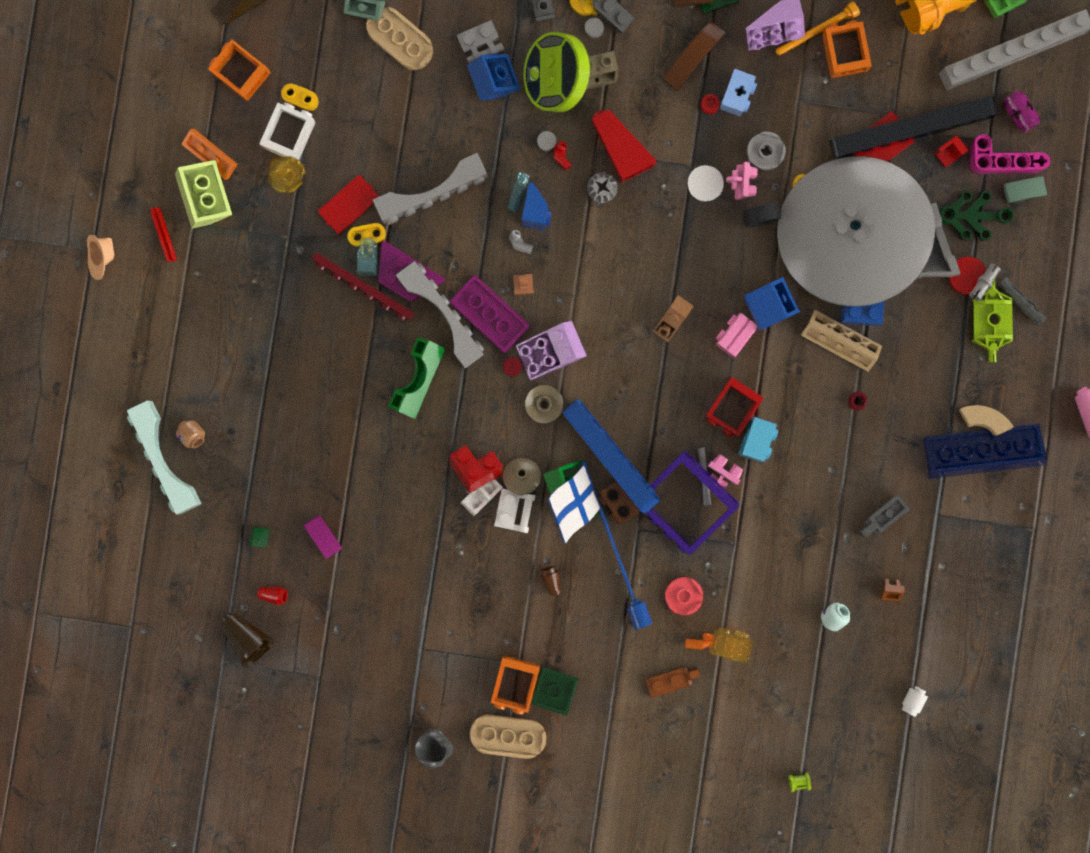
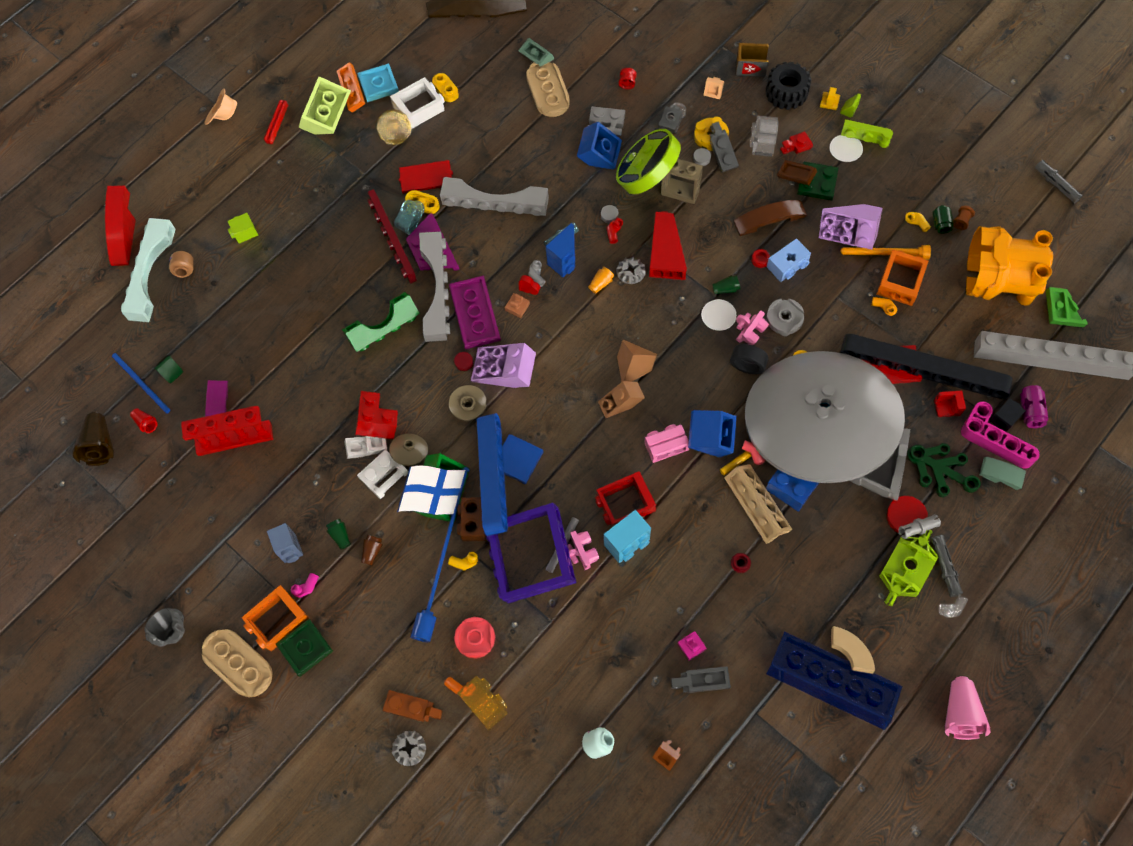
camera: 30 degrees right, 20 degrees down
(103, 434) = (118, 225): none -> red slope
(218, 364) = (242, 228): none -> lime brick
(231, 132) = (378, 82): none -> medium azure plate
(241, 563) = (161, 404): none -> blue axle
(254, 80) = (418, 58): orange window -> none
(359, 561) = (227, 430): none -> red fence
(481, 622) = (285, 543): none -> sand blue brick
(515, 584) = (338, 533): none -> dark green cone
(520, 644) = (306, 588): none -> dark pink arm
(522, 259) = (528, 285): none -> red tile
(582, 214) = (601, 279): none -> light orange cone
(620, 424) = (520, 458): none -> blue tile
(635, 542) = (465, 563): none -> yellow arm
(661, 276) = (634, 361): none -> medium nougat slope
(691, 702) = (417, 753): none -> light grey gear
(698, 150) = (726, 285): none -> dark green cone
(803, 312) = (734, 463): none -> yellow bar
(806, 296) = (757, 458): none -> coral arm
(846, 85) = (886, 304): none -> light orange arm
(859, 493) = (691, 645): none -> dark pink tile
(1004, 132) = (1007, 415): none -> black brick
(1046, 335) = (955, 609): none -> clear arm

